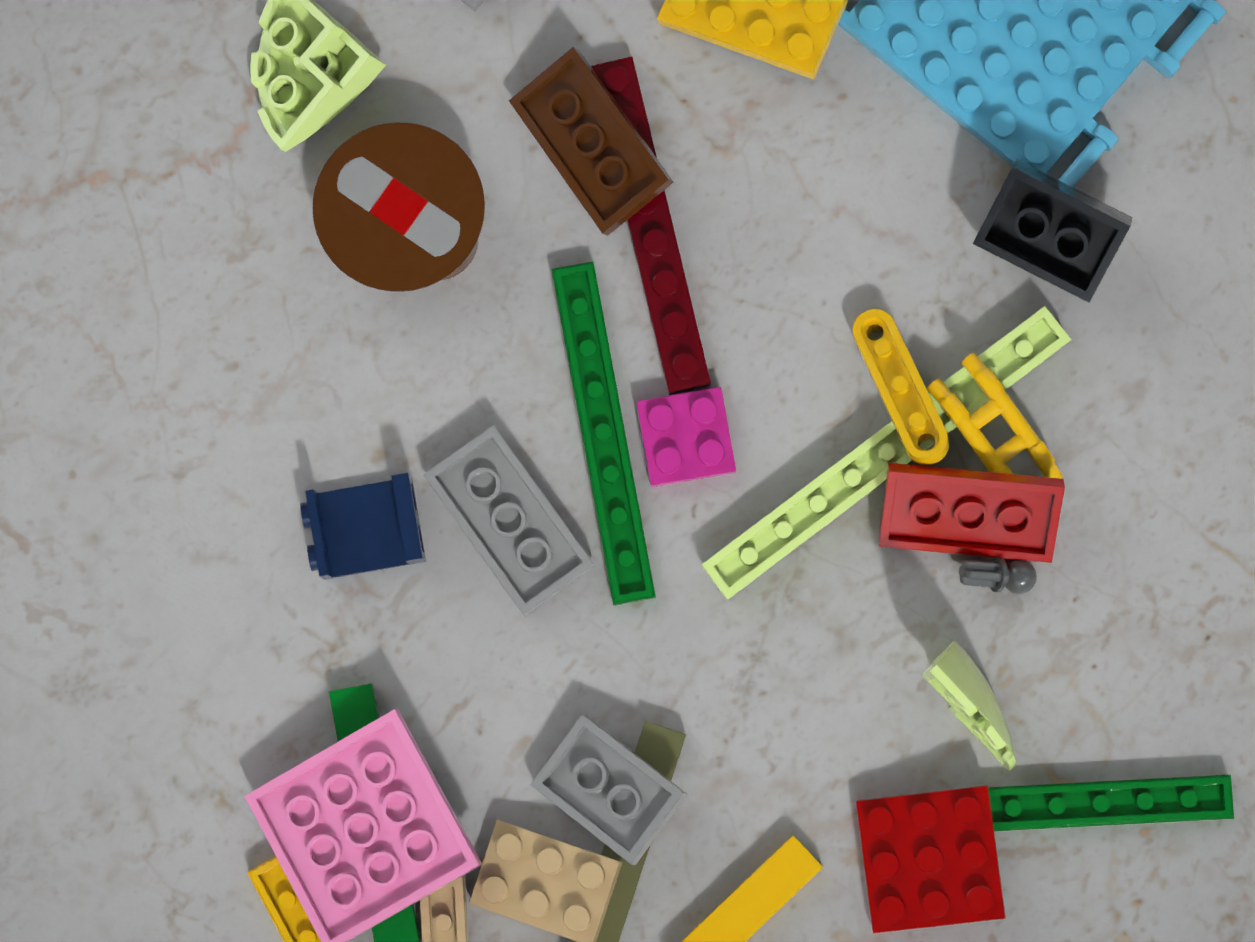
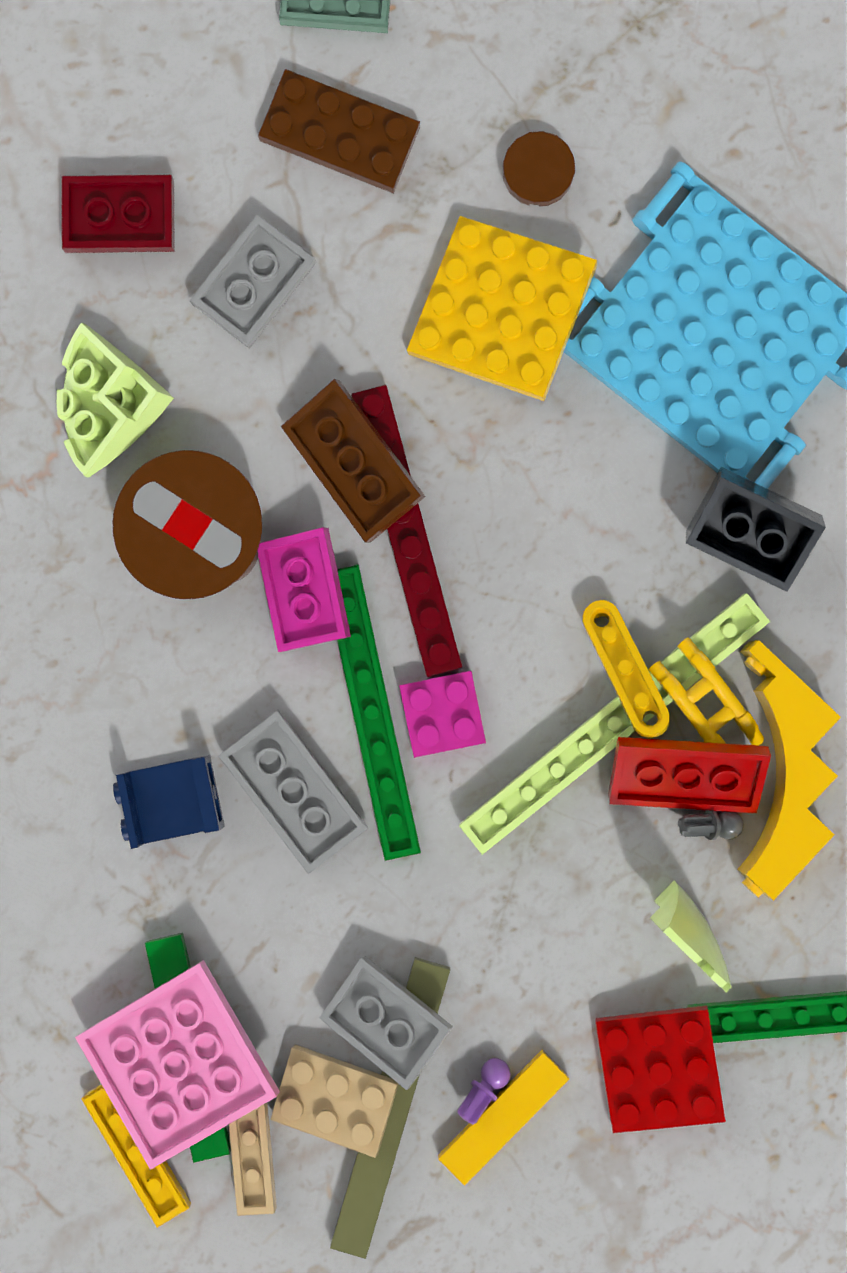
camera: 10 degrees left, 5 degrees up
(528, 287) = (303, 590): none -> dark pink plate
(734, 862) = (494, 1075): none -> medium lavender axle
(1099, 456) = (797, 724): none -> yellow arch

